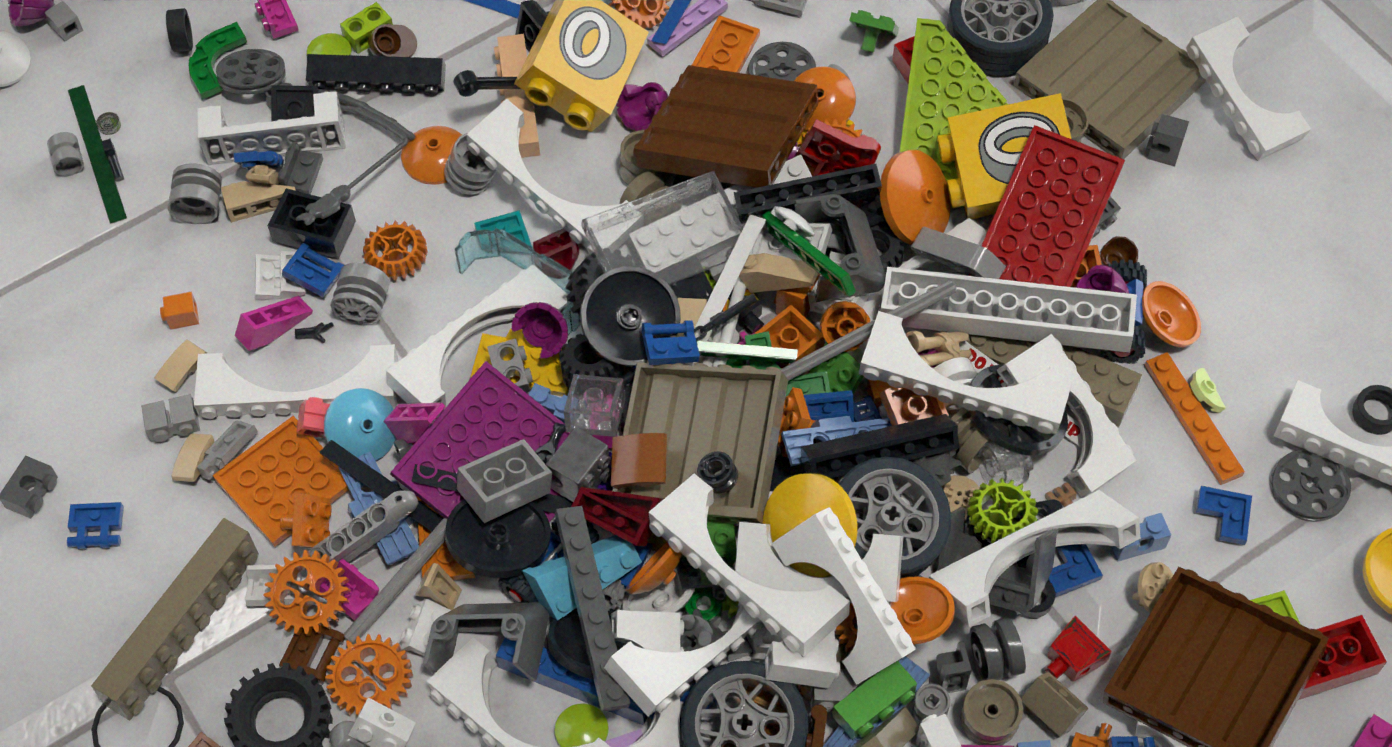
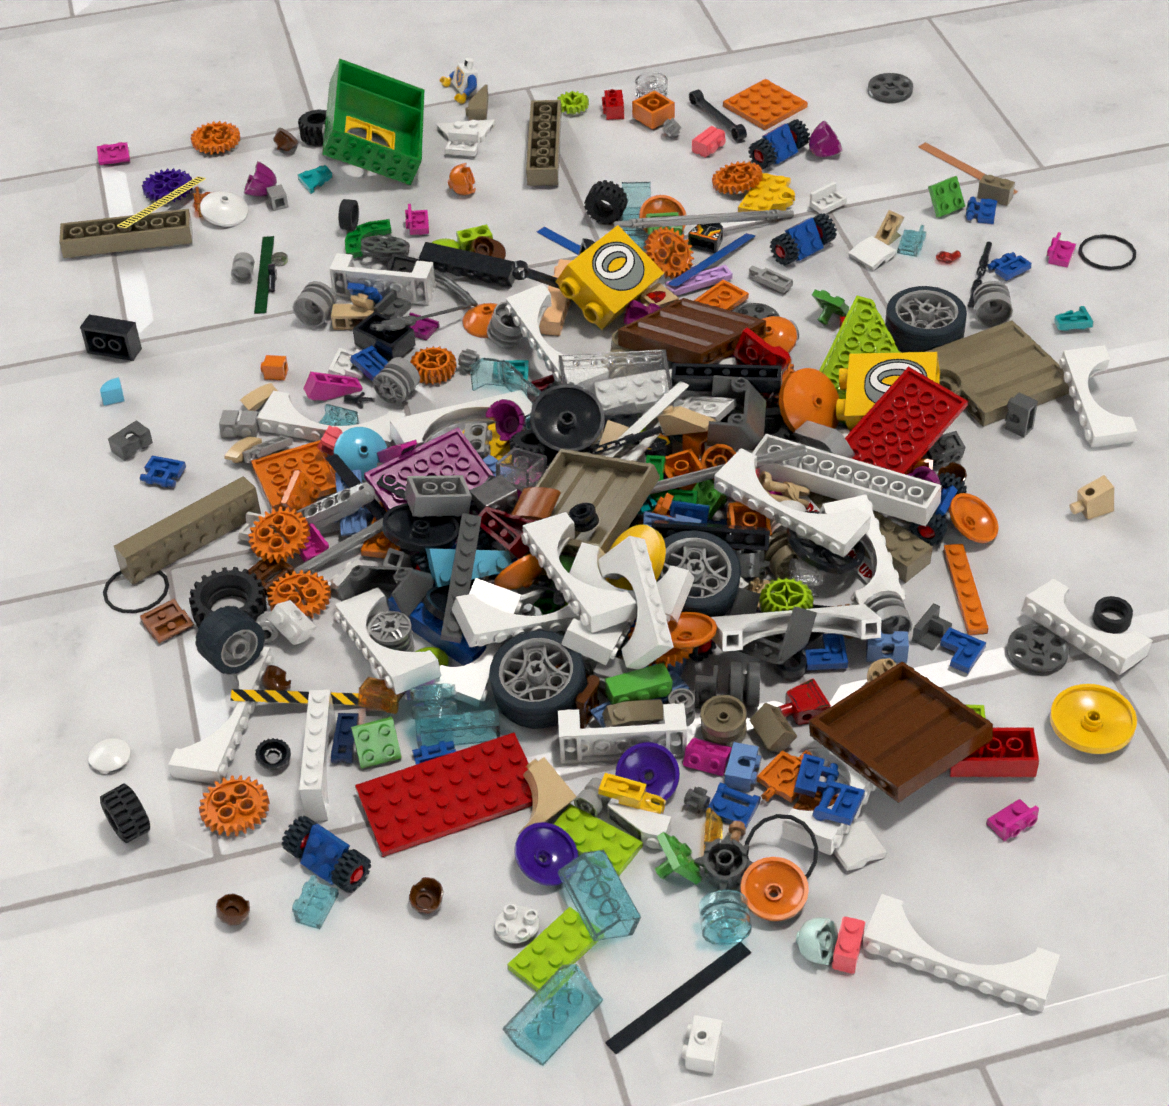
camera: 20 degrees right, 15 degrees down
(303, 373) = (339, 416): none -> clear light blue bracket
(359, 193) = (424, 328): none -> magenta plate
(439, 587) = (368, 552): tan slope -> none
(440, 229) = (467, 358): none -> light grey gear
(481, 588) = (397, 559): none -> light grey brick
(525, 724) = (392, 631): none -> light grey wheel
(652, 67) = (659, 295): none -> tan torso
(671, 349) = (587, 444): blue plate -> none
(747, 352) = (664, 469): tile -> none
(794, 221) = (708, 388): white dish -> none
(809, 254) = (708, 406): green tile -> none
(1127, 489) = (891, 610): none -> light grey wheel
(1179, 492) = (930, 628): none -> dark grey panel
(1205, 390) = (981, 571): yellowish green plate -> none
(1299, 244) = (1094, 498): none -> tan torso

